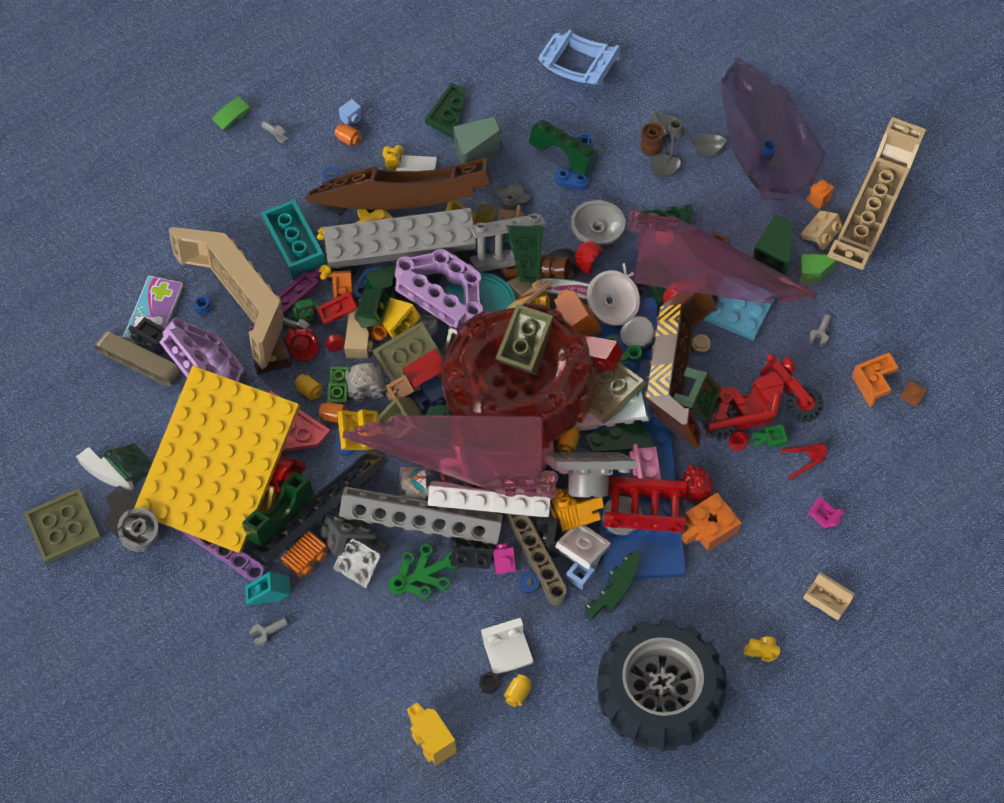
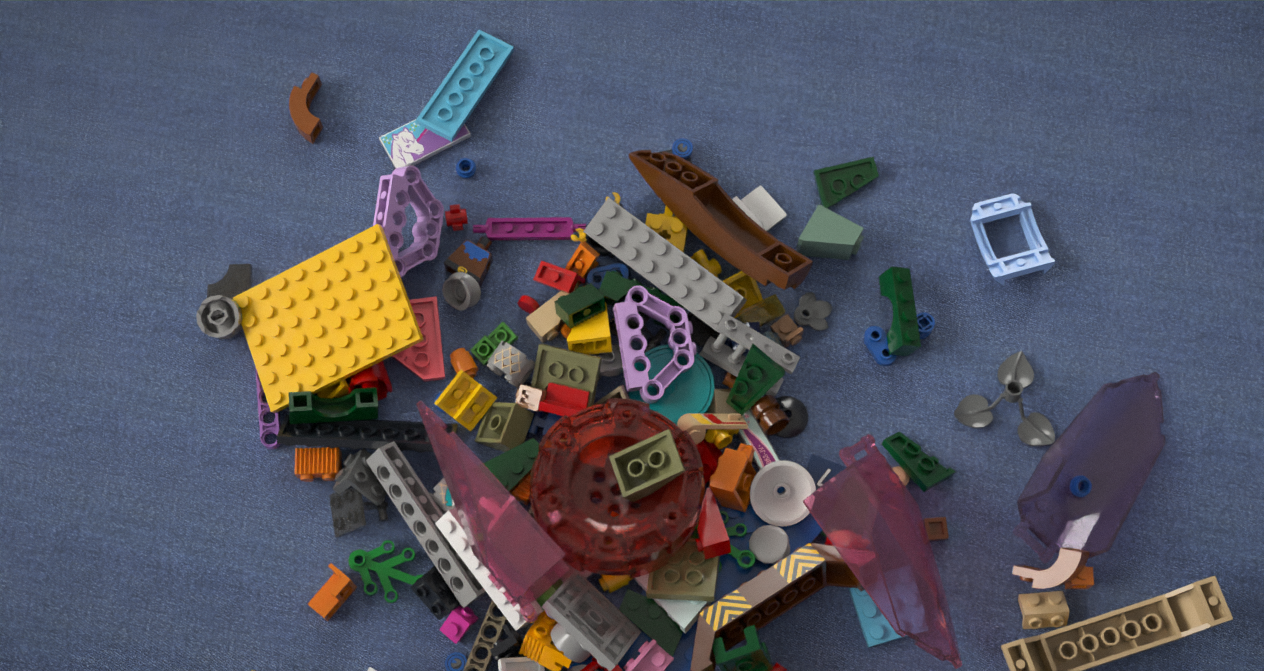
camera: 45 degrees right, 10 degrees up
(54, 369) = (299, 107): none -> dark orange arch
(62, 526) = (178, 256): olive plate -> none
(102, 469) = (252, 239): white slope -> none
(129, 461) = (272, 252): clear green plate -> none
(137, 358) = (367, 160): dark tan beam -> none
(148, 257) = (465, 85): none -> medium azure plate
(149, 334) = (396, 154): black bracket -> none
(229, 113) = (664, 12): bright green slope -> none
(230, 335) = (456, 217): none -> red gear
(239, 278) = (505, 188): tan slope -> none
(265, 631) = (229, 495): light grey bar -> none
(267, 589) = (263, 463): teal slope -> none
(278, 131) = (682, 63): light grey bar -> none
(283, 371) = (461, 291): none -> light grey piece
(293, 238) = (590, 177): teal brick -> none
(301, 324) = (518, 269): light grey bar -> none
(302, 344) = (500, 281): red hair -> none
(305, 310) = (533, 252): green head -> none
(308, 387) = (468, 323): yellow brick -> none
(348, 134) = (736, 123): orange brick -> none
(350, 113) = (760, 105): light blue plate -> none
(392, 156) = (751, 178): yellow plate -> none
(403, 616) = (332, 594): none -> orange panel
(586, 255) = (807, 430): red hair -> none
(598, 222) = (859, 401): light grey dish -> none
(652, 139) = (986, 377): reddish brown wheel -> none
(701, 343) = (819, 605): tan plate -> none
(774, 245) = (974, 585): dark green slope -> none
(812, 194) = (1065, 569): none -> arch
(815, 267) = (990, 637): bright green slope -> none

